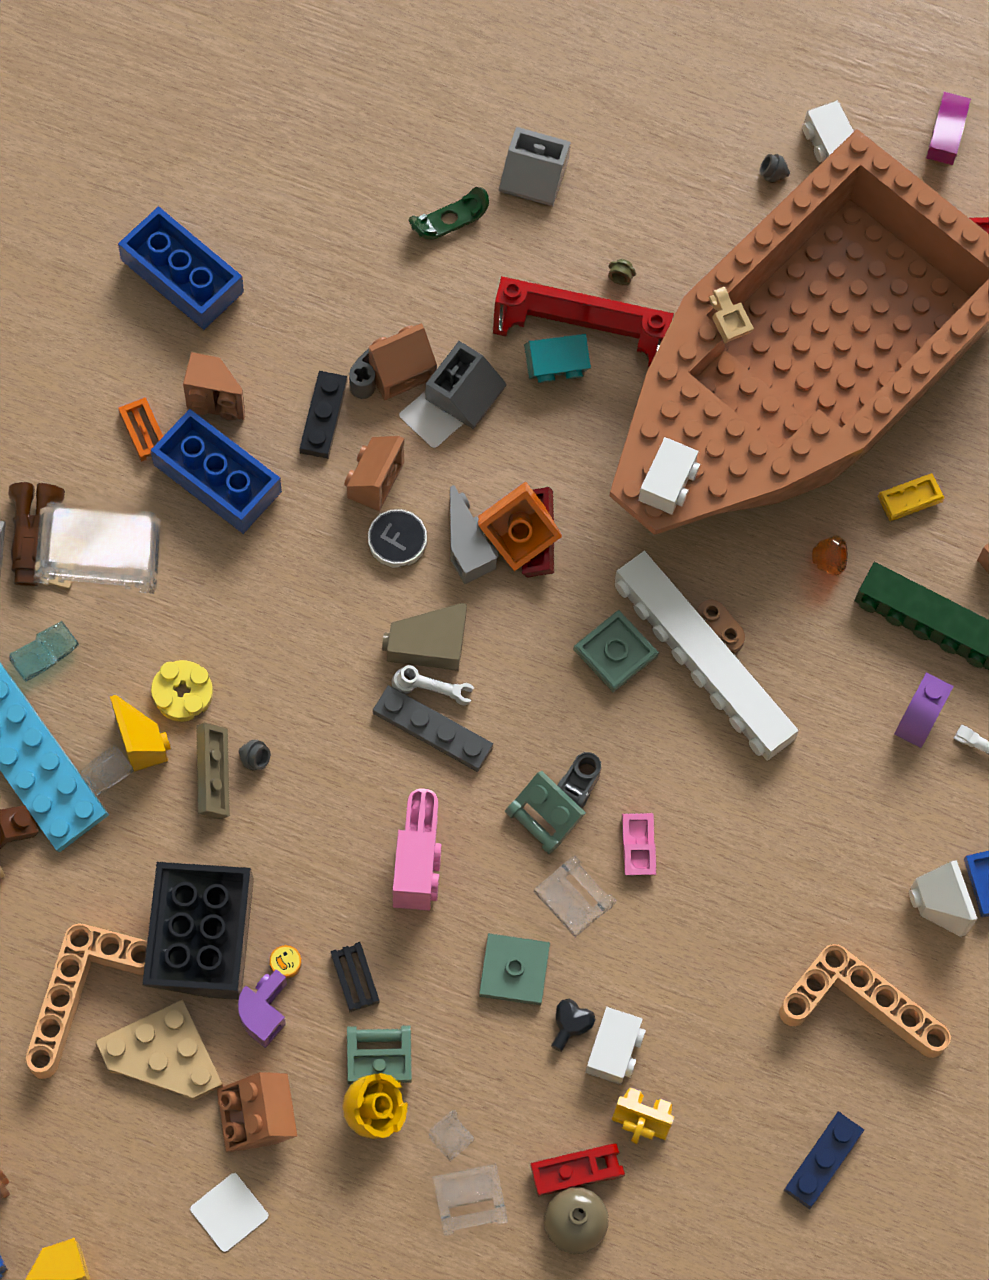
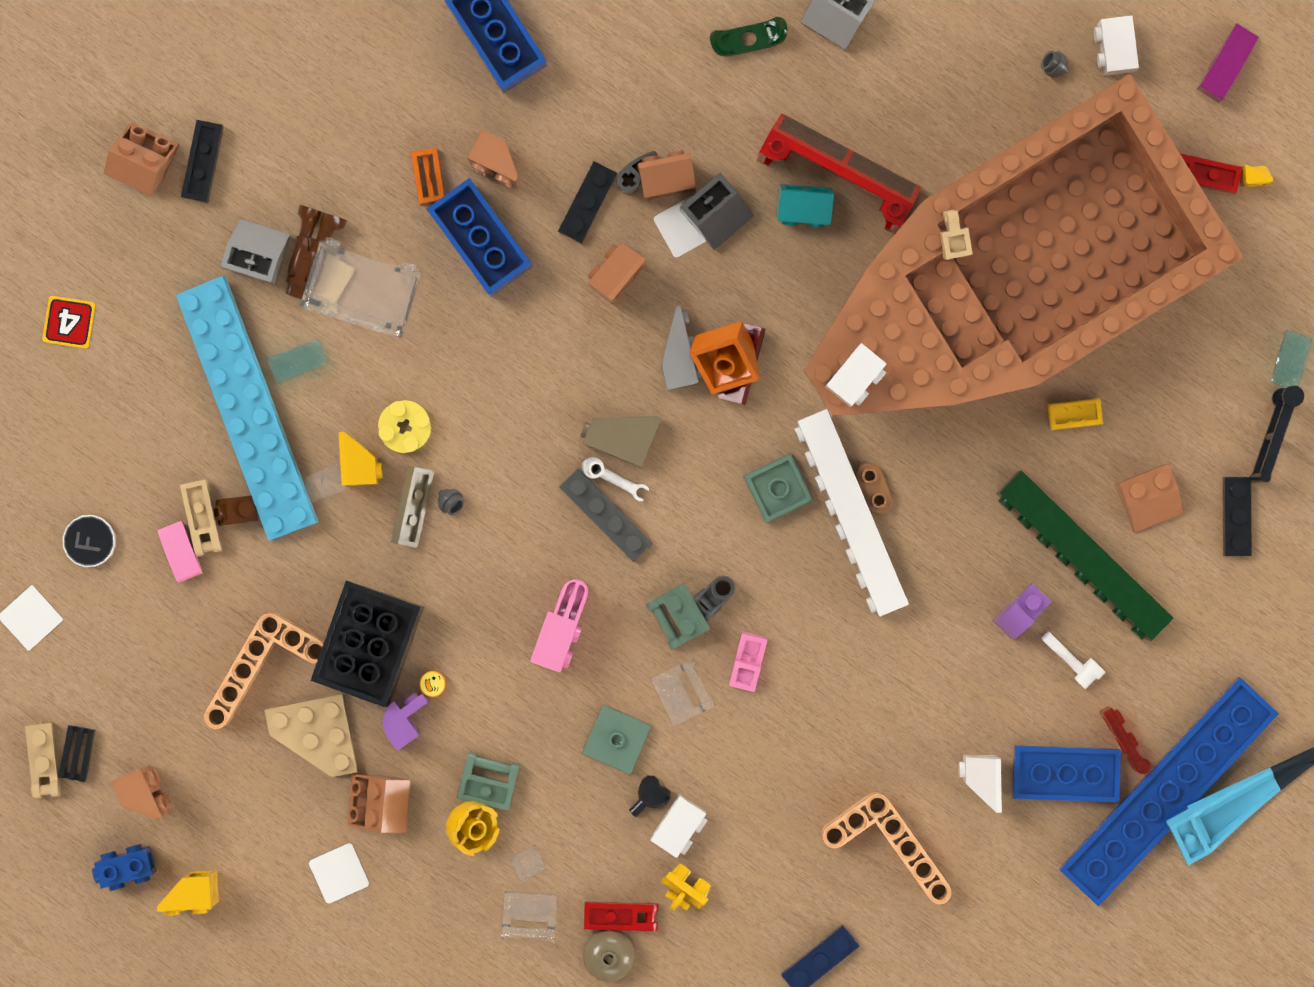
camera: 20 degrees right, 20 degrees up
(347, 951) = (486, 734): black tile -> none
(397, 538) = (620, 335): black tile -> none
(621, 271) = (886, 132): olive plate -> none
(831, 555) = (987, 451): clear orange cone -> none

